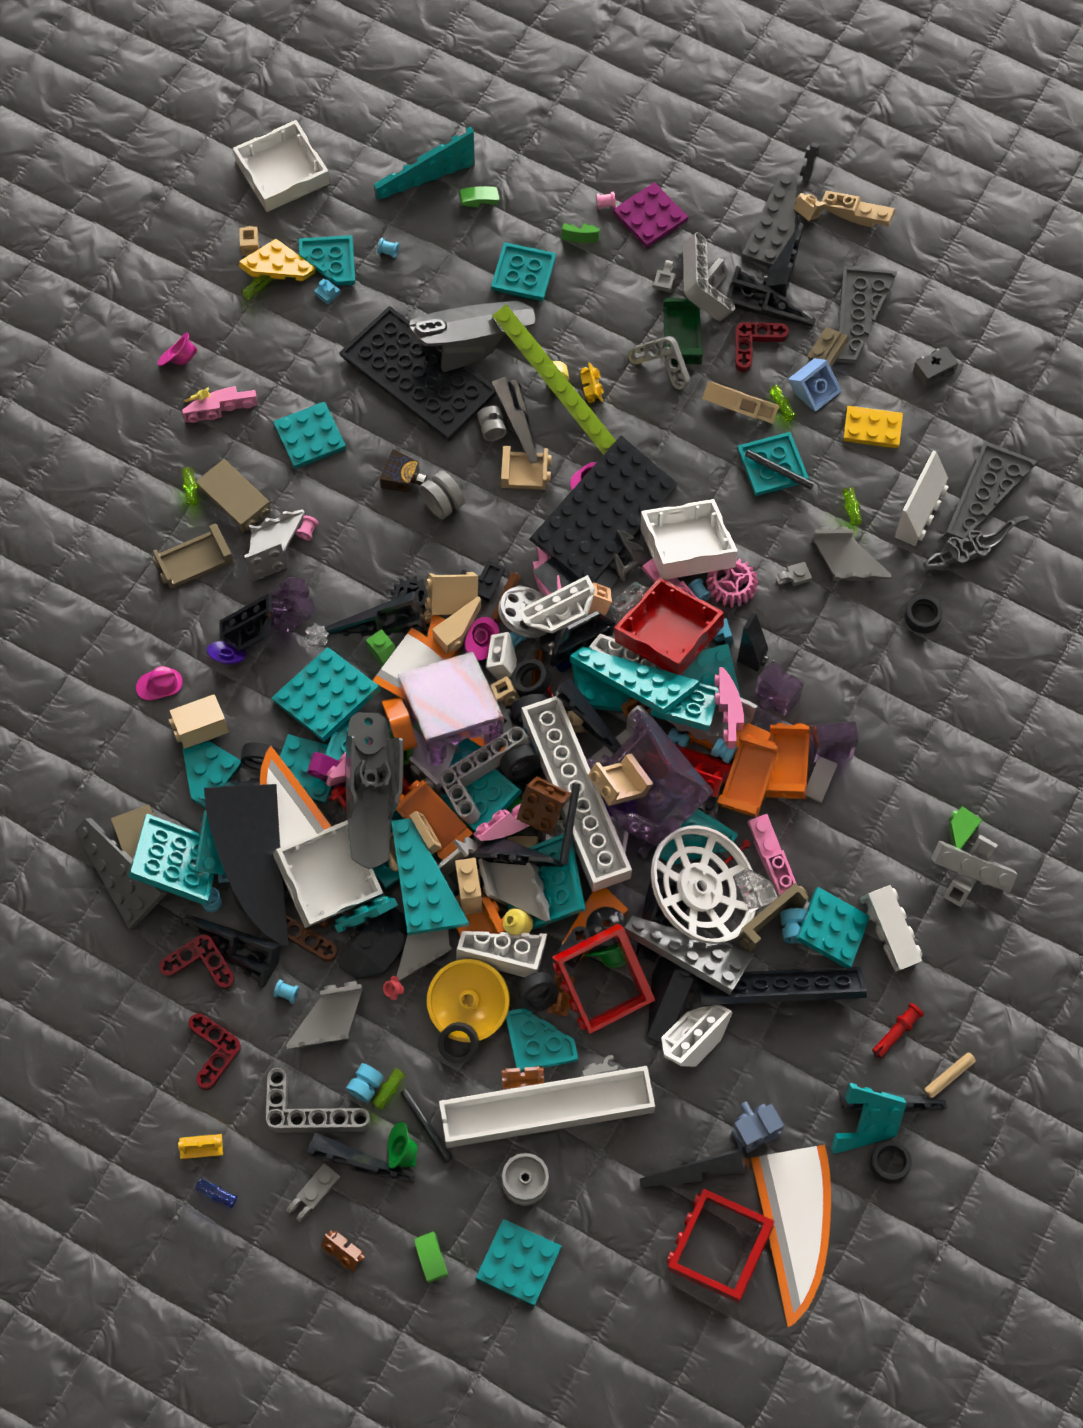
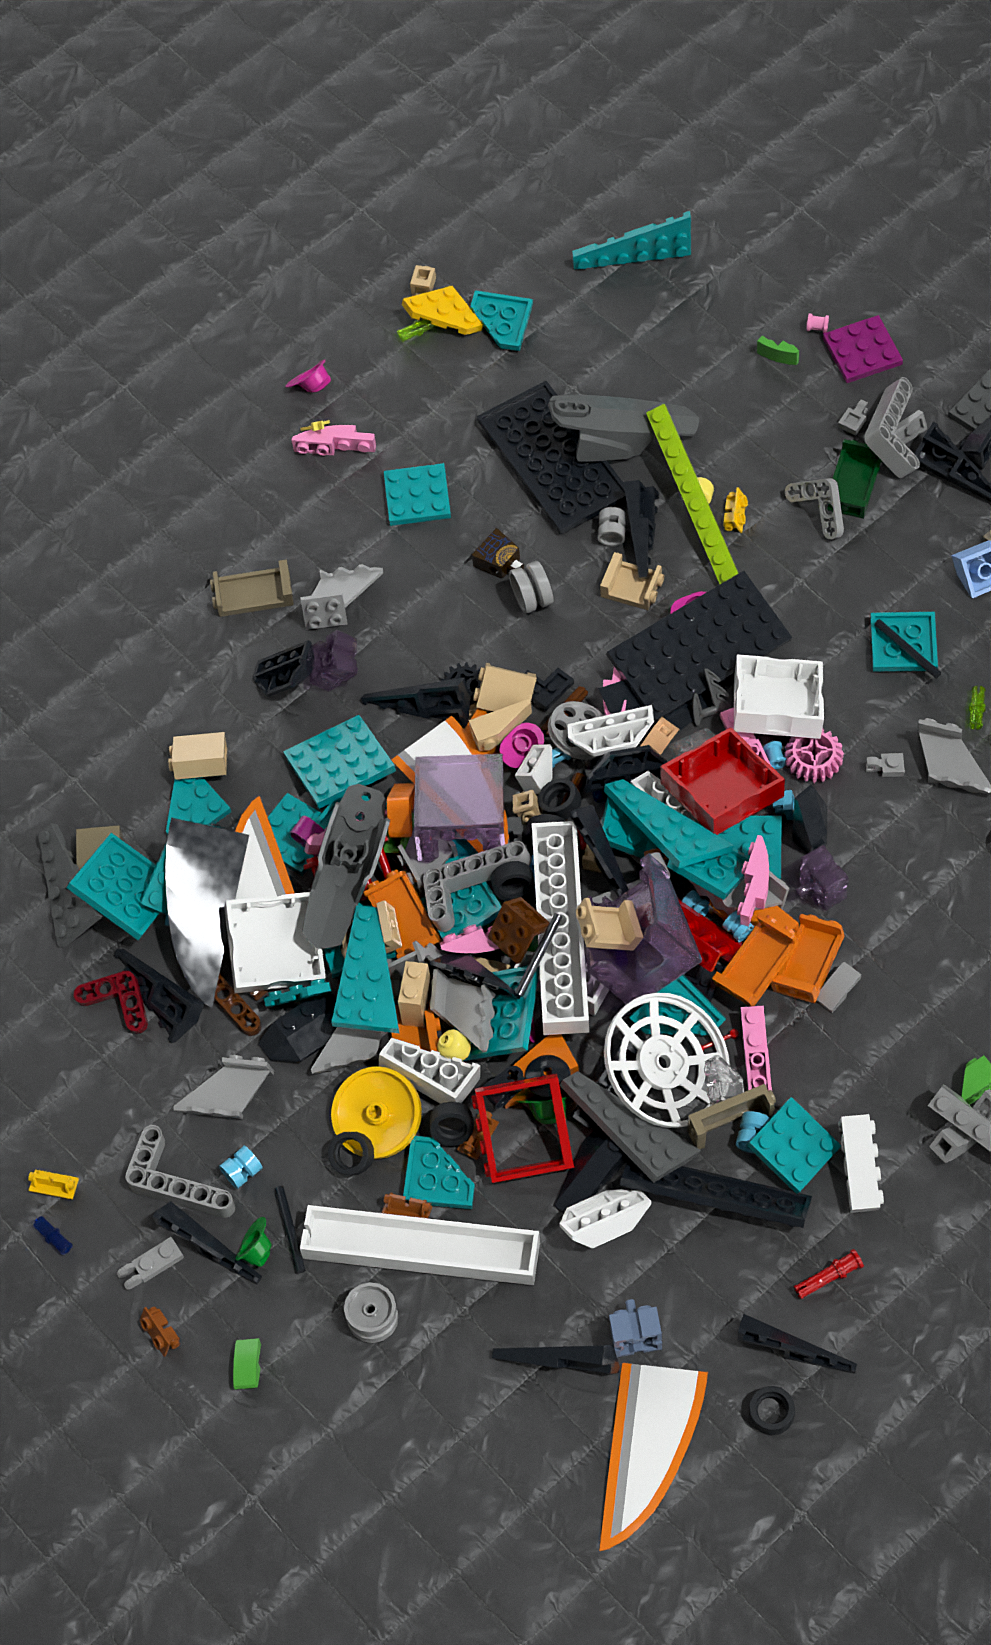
camera: 25 degrees right, 5 degrees down
(159, 683) = (175, 708): dark pink piece -> none
(189, 486) = (275, 517): clear neon green pin -> none
(214, 896) = (151, 934): medium azure wheel -> none
(220, 1052) = (107, 1094): dark red beam -> none
(224, 653) = (250, 694): dark purple dish -> none
(234, 495) = (316, 536): dark tan panel -> none
(254, 753) = (241, 800): black tyre -> none
(281, 166) = (483, 212): white tile -> none
(286, 991) = (193, 1052): medium azure bush -> none
(307, 528) = (380, 588): bright pink bush -> none
(316, 636) = (350, 700): clear gear -> none
(327, 291) = (487, 351): medium azure tile -> none
(380, 647) = (412, 726): bright green slope -> none
(388, 248) = (566, 321): medium azure bush -> none
(388, 1088) = (263, 1180): clear neon green pin -> none
(393, 988) = (304, 1079): coral plate -> none
(475, 195) = (676, 287): bright green slope -> none
(518, 1262) = (336, 1397): teal plate -> none
(523, 271) = (702, 377): teal plate -> none
(594, 1069) = (484, 1219): light grey plate -> none
(682, 1239) = (581, 1469): red window -> none
(740, 402) = (890, 568): tan slope -> none
(749, 337) = (924, 503): dark red beam -> none
(783, 402) = (937, 580): clear neon green pin -> none
(833, 740) = (865, 948): clear purple slope -> none
(878, 1119) = (771, 1359): teal wing -> none
(949, 1075) = (871, 1338): tan axle -> none

